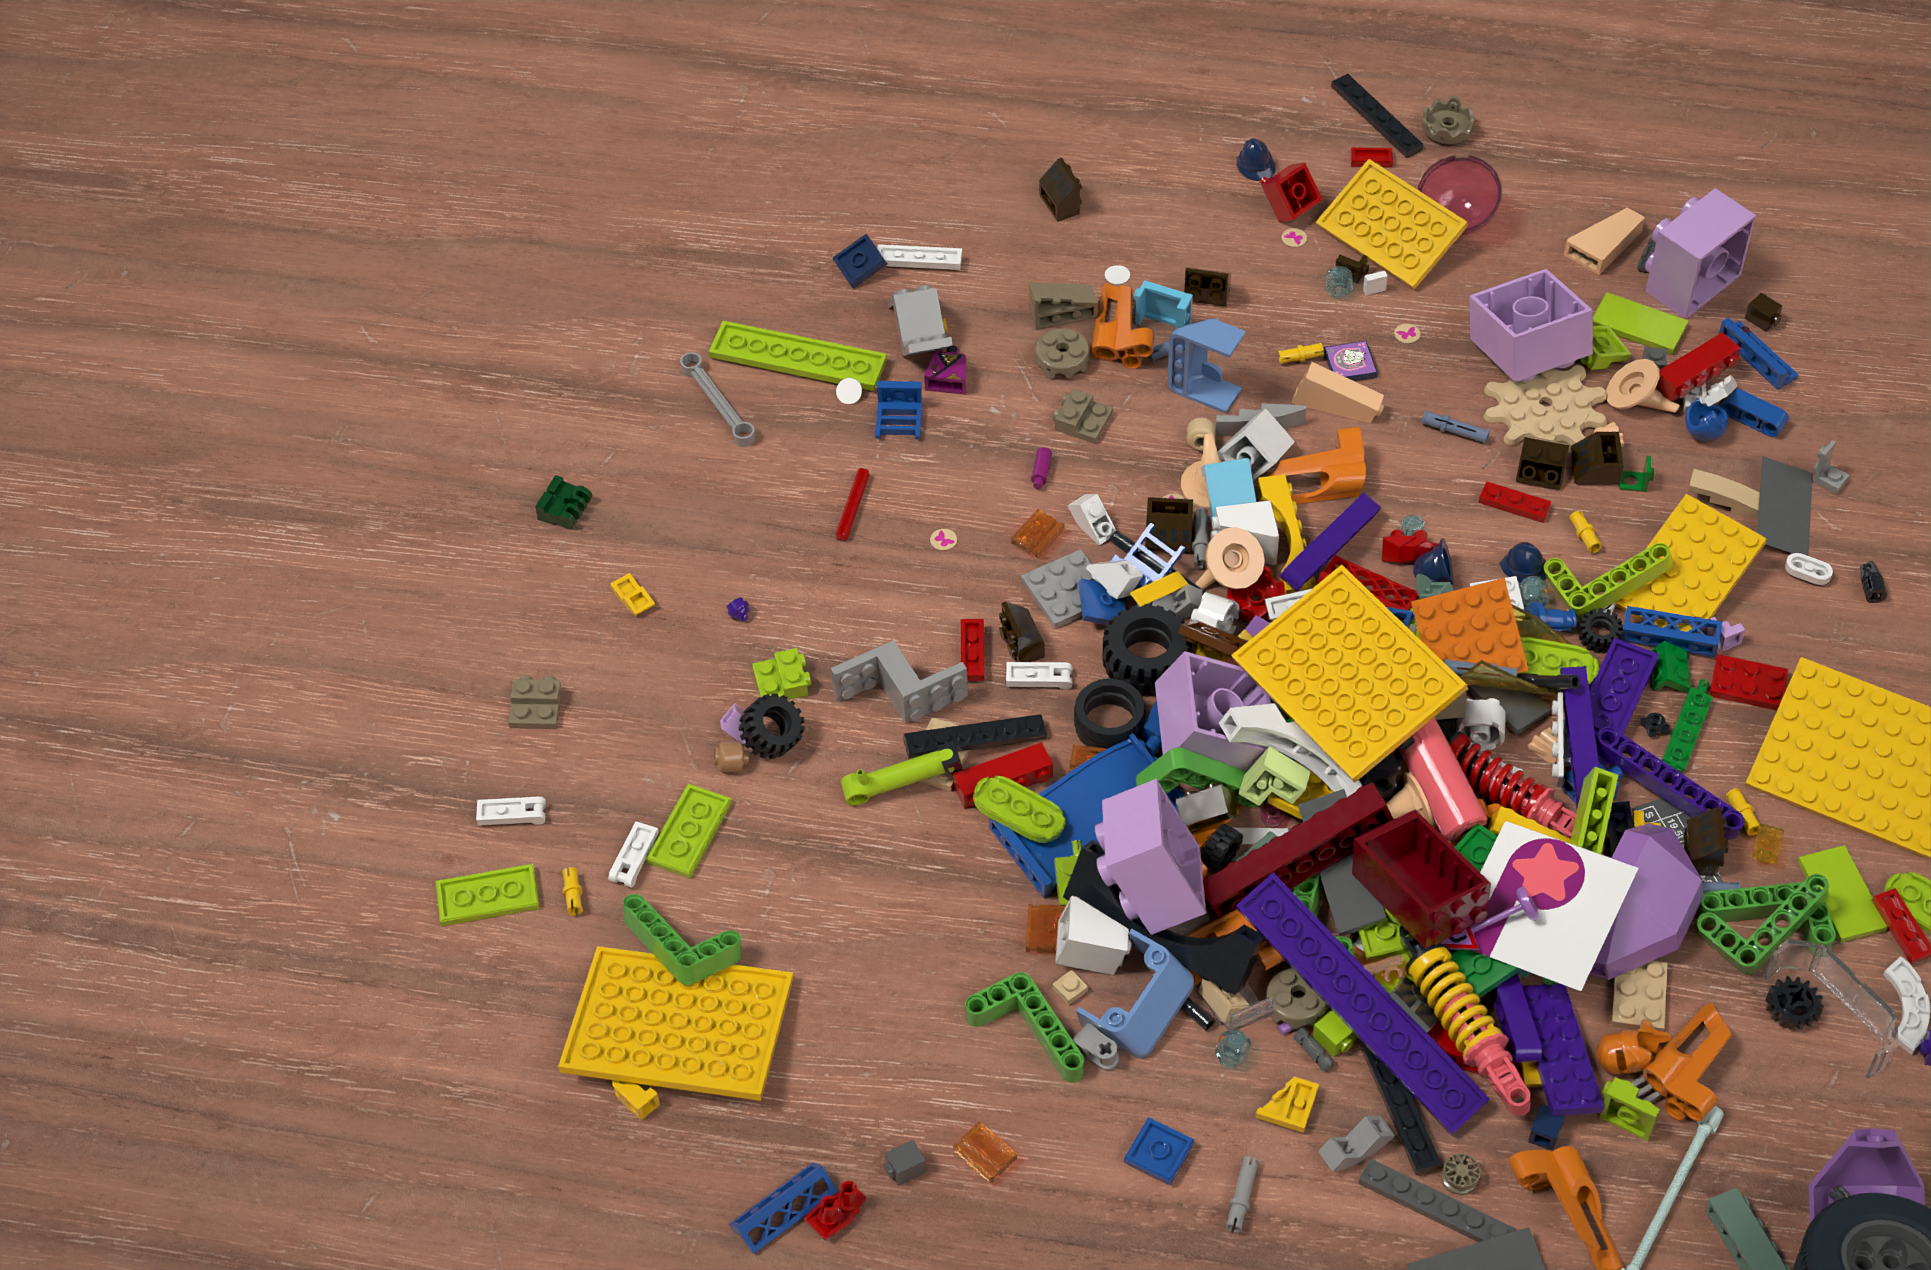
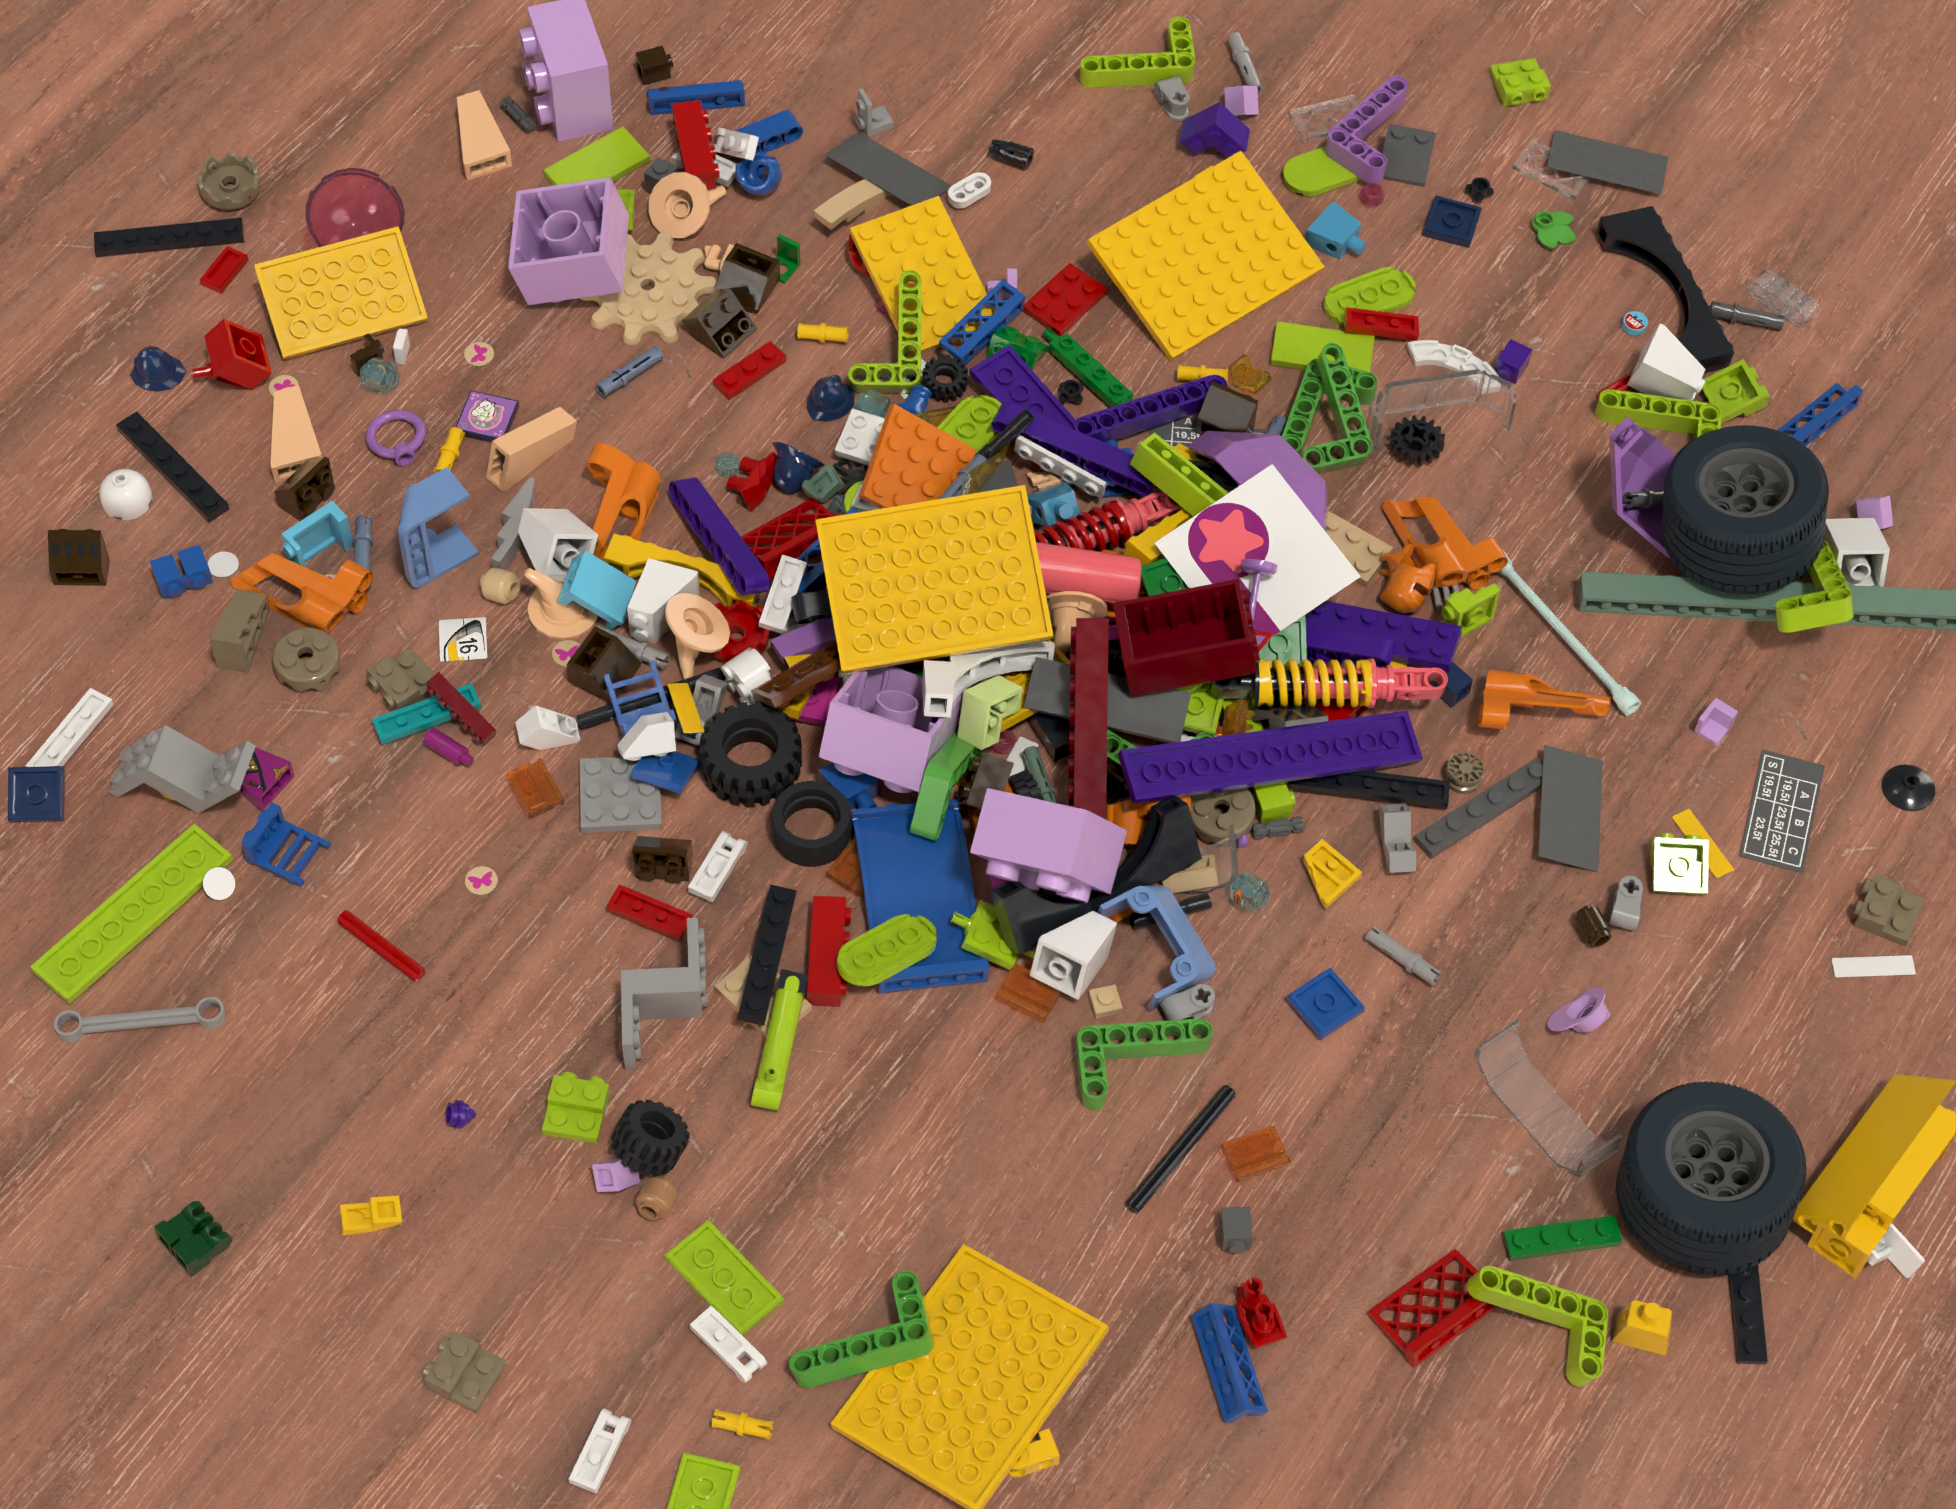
camera: 70 degrees left, 5 degrees up
(962, 1095) = (1180, 1149): none -> black axle
(1062, 442) = (418, 716): none -> teal plate
(1073, 456) = (460, 709): none -> dark red piece
(1094, 258) = (169, 578): none -> blue piece
(1136, 193) = (125, 494): none -> white cylinder
(1144, 436) = (462, 639): none -> sticker
(1179, 209) = (172, 467): none -> black plate
(1251, 257) = (291, 434): none -> light nougat slope
(1281, 327) = (402, 452): none -> medium lavender piece
(1522, 753) = (1055, 504): none -> dark azure torso

